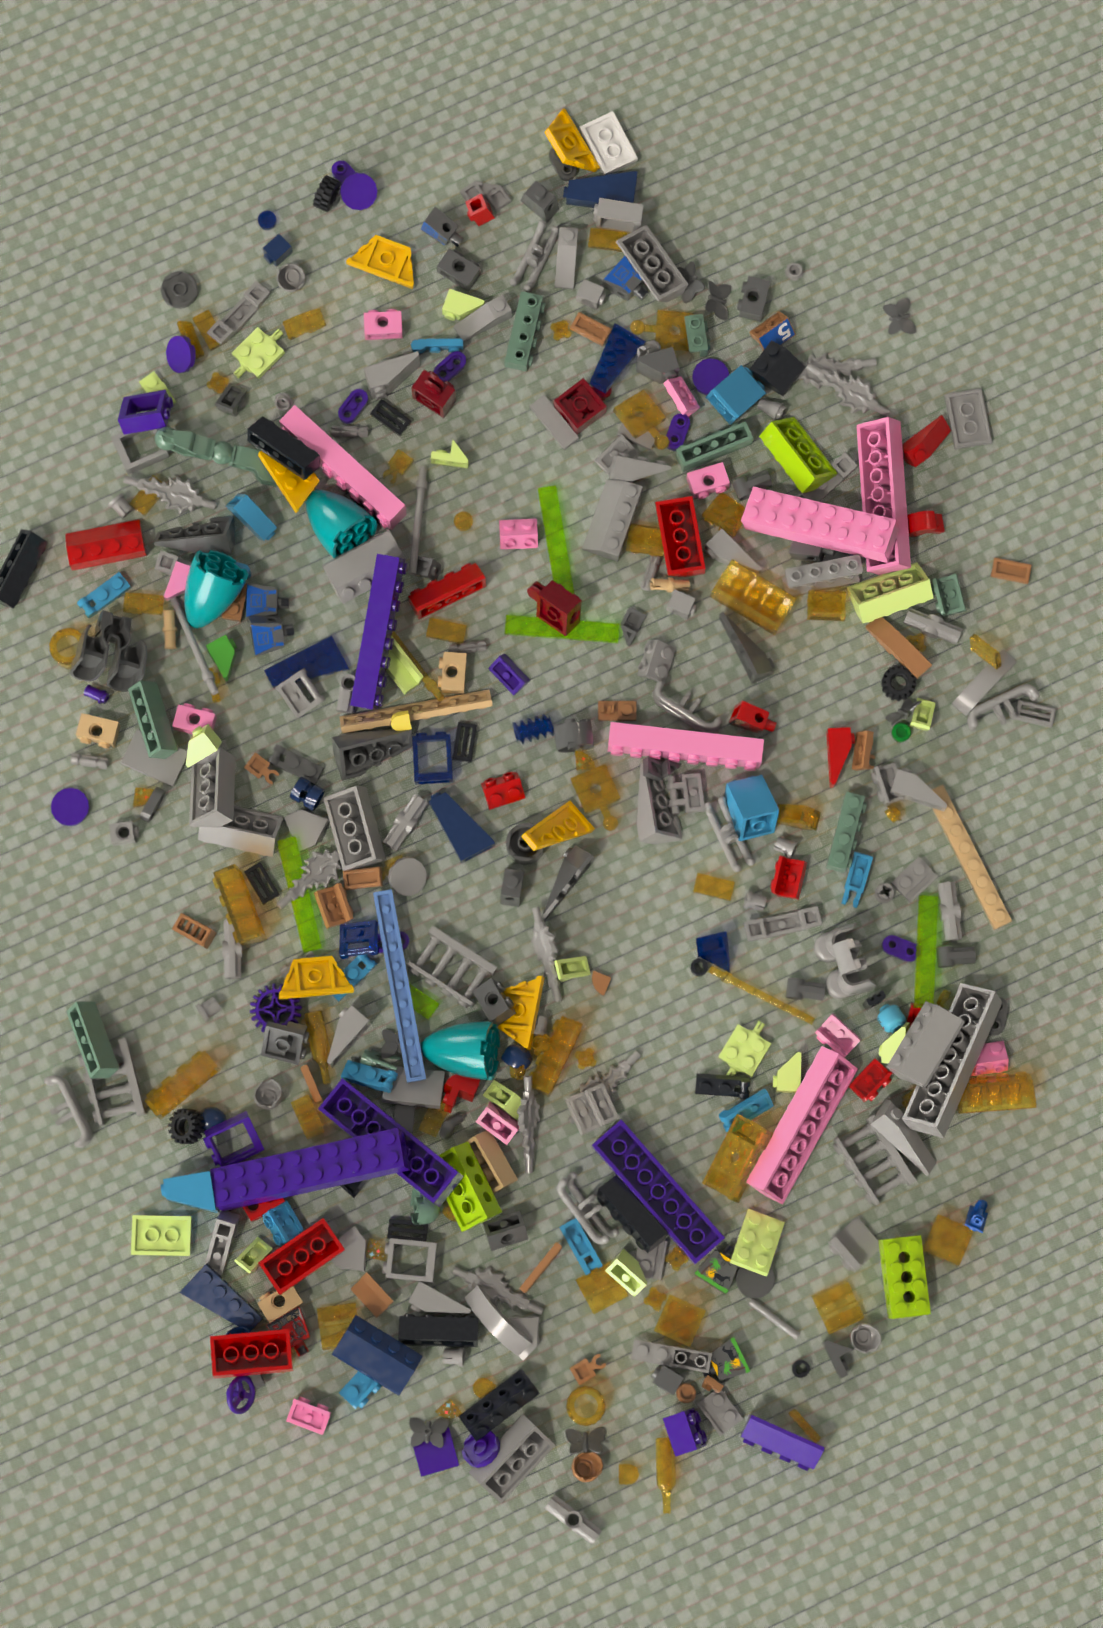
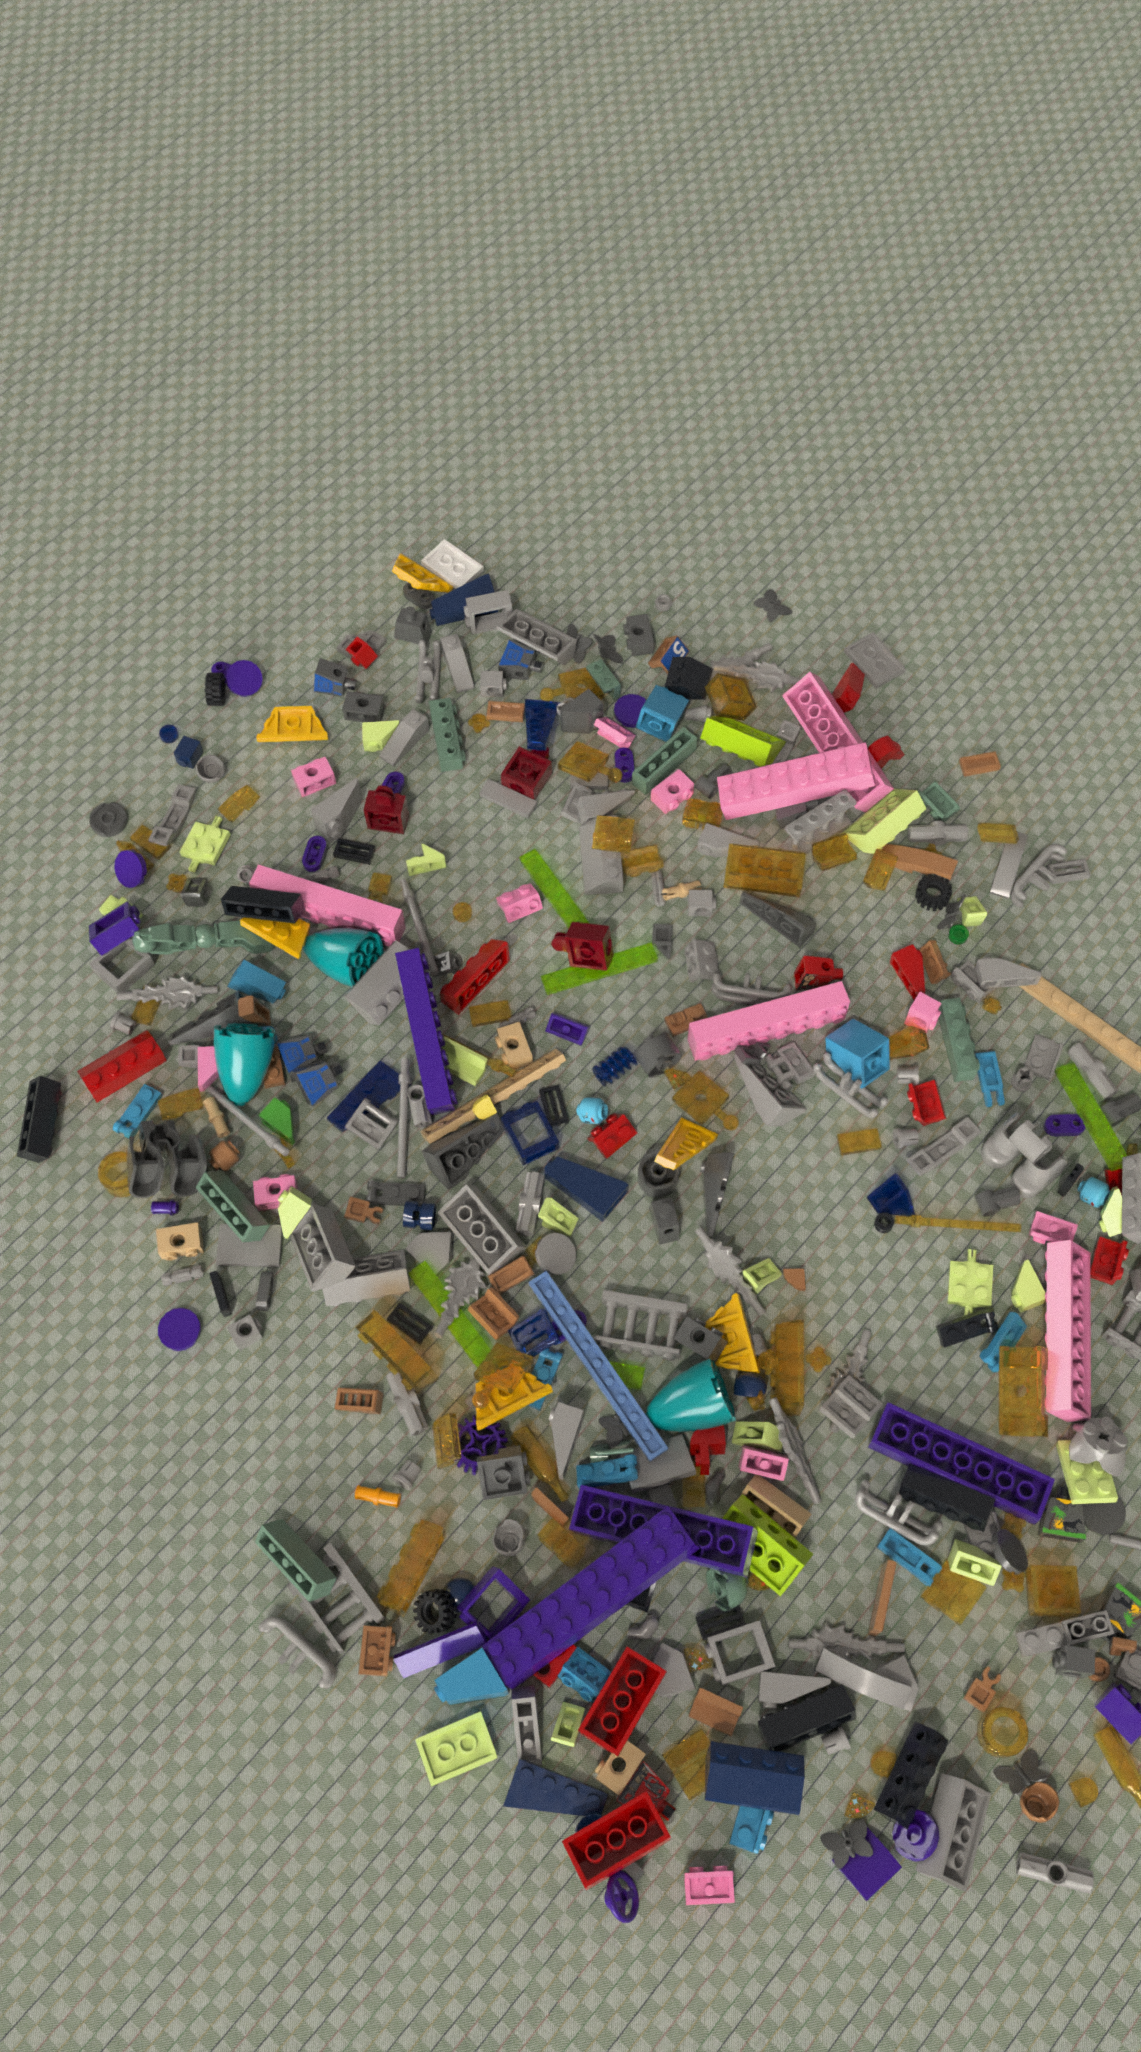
camera: 20 degrees left, 15 degrees down
(115, 791) = (220, 1293): none -> black tile
(128, 1136) = (375, 1651): none -> medium nougat bracket
(141, 796) = (250, 1288): clear yellow tile -> none
(163, 669) = (224, 1155): none -> medium nougat head
(178, 1016) = (377, 1496): none -> light orange pin
(178, 1157) = (440, 1649): none -> tile
(238, 546) = (254, 1011): none -> medium nougat slope
(250, 995) = (446, 1440): none -> clear yellow slope
(317, 967) = (505, 1379): none -> clear yellow plate
(344, 665) = (404, 1081): none -> light grey bar
(346, 1211) = (646, 1630): none -> light grey arm
(423, 845) = (557, 1217): none -> yellowish green slope
(437, 345) = (374, 772): dark azure hinge -> none
(494, 762) = (592, 1110): none -> medium azure head
(505, 1230) = (825, 1574): dark grey brick -> none
(605, 239) = (486, 639): clear yellow tile -> none
(628, 507) = (613, 834): none -> clear yellow hinge
(660, 1277) = (1009, 1552): none -> dark grey tile
(680, 537) = (673, 844): red slope -> none
(765, 1225) = (1101, 1442): none -> light grey brick
(806, 406) = (730, 697): none -> clear yellow brick
(825, 797) = (923, 1013): none -> bright pink brick
(860, 641) = (880, 870): none -> clear yellow slope

